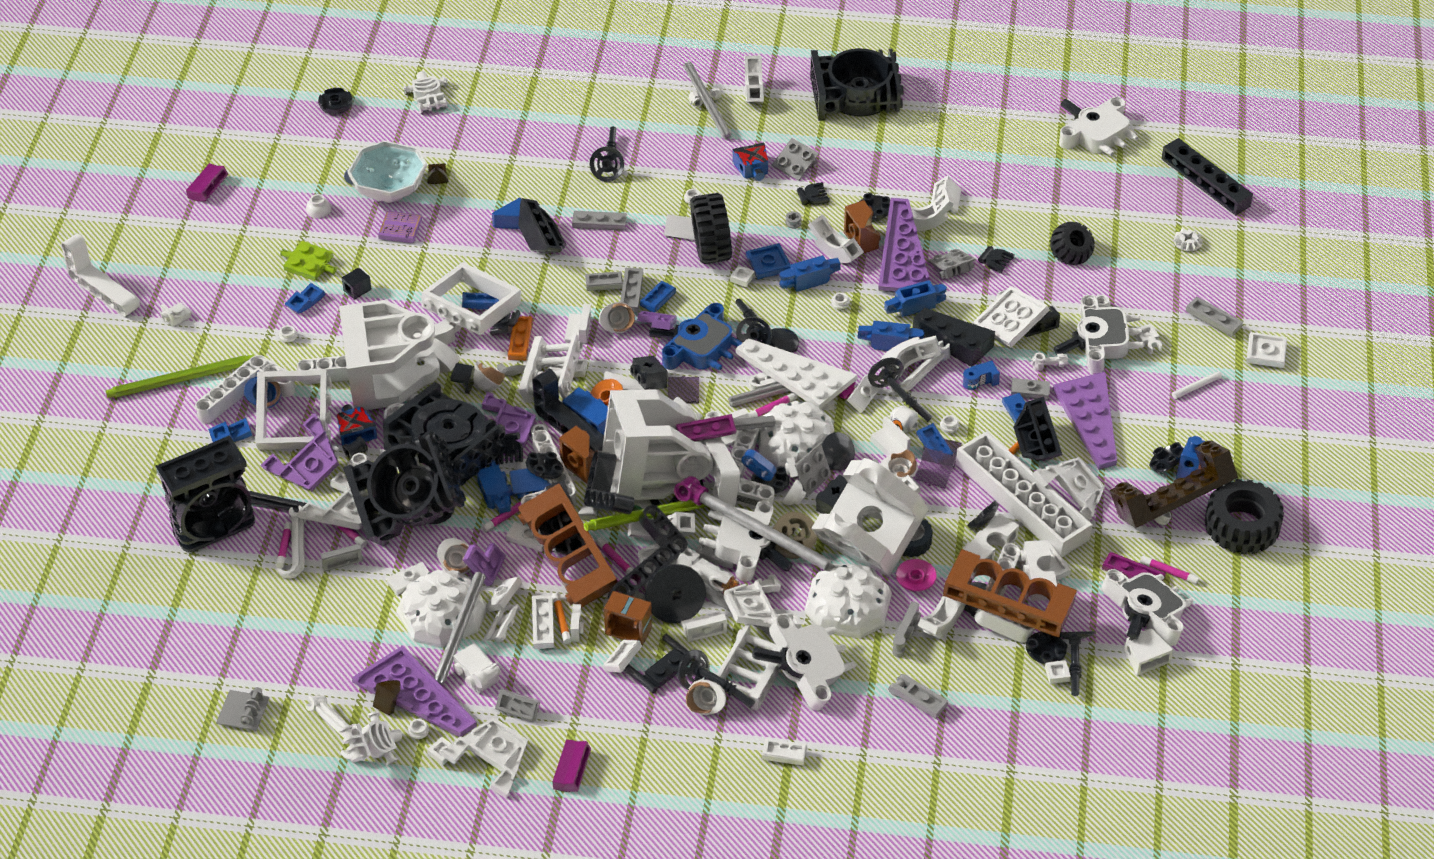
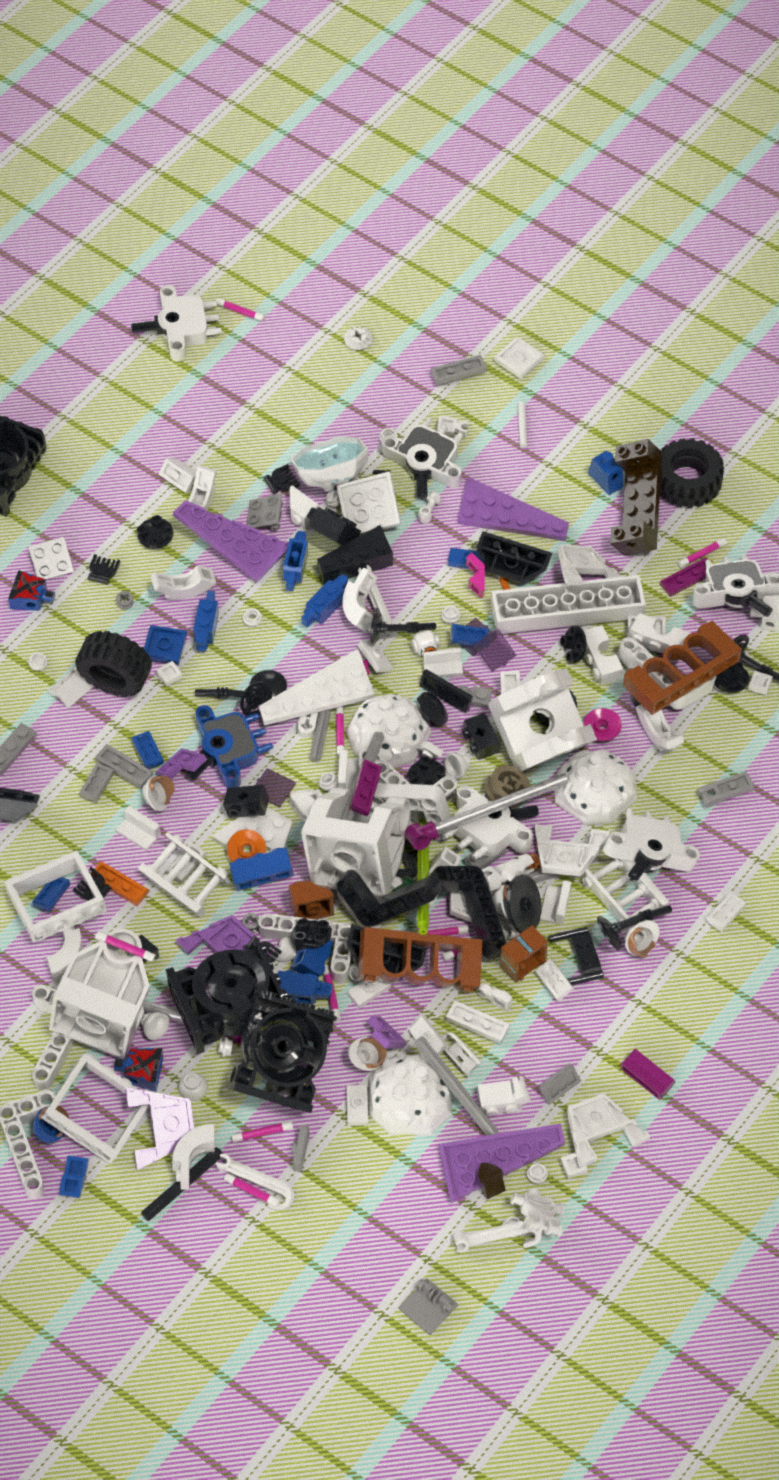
camera: 60 degrees left, 10 degrees up
(207, 494) = (183, 1219): black brick -> none
(289, 483) = (191, 1145): none -> white arch
(340, 512) = (247, 1115): white wing -> none
(355, 447) = (170, 1079): black bush -> none
(415, 327) = (125, 946): none -> dark pink bar
(487, 378) = (160, 932): piece -> none
(512, 370) = (158, 907): light grey bar -> none
(558, 414) = (254, 894): black beam -> none
(561, 618) = (482, 1007): orange bar -> none
(759, 465) = (418, 772): blue beam -> none
(813, 469) = (441, 737): light grey hinge -> none
(859, 226) = (181, 553): dark orange slope -> none
(865, 443) = (446, 691): none -> black tile
(901, 464) = (481, 672): piece -> none
(906, 629) = (654, 762): light grey plate -> none
(965, 301) = (333, 525): none -> black hinge
(974, 281) = (300, 507): none -> white slope
(981, 375) = (412, 560): blue leg -> none
(999, 423) = (477, 581): none -> dark pink slope
(1028, 271) = (330, 462): none -> white rock
(1030, 388) = (448, 537): light grey plate -> none
(1072, 243) = (308, 417): black wheel -> none
(1147, 157) = (240, 309): none -> dark pink bar
(1166, 457) = (591, 488): black dish -> none
(1207, 176) = (297, 282): black brick -> none

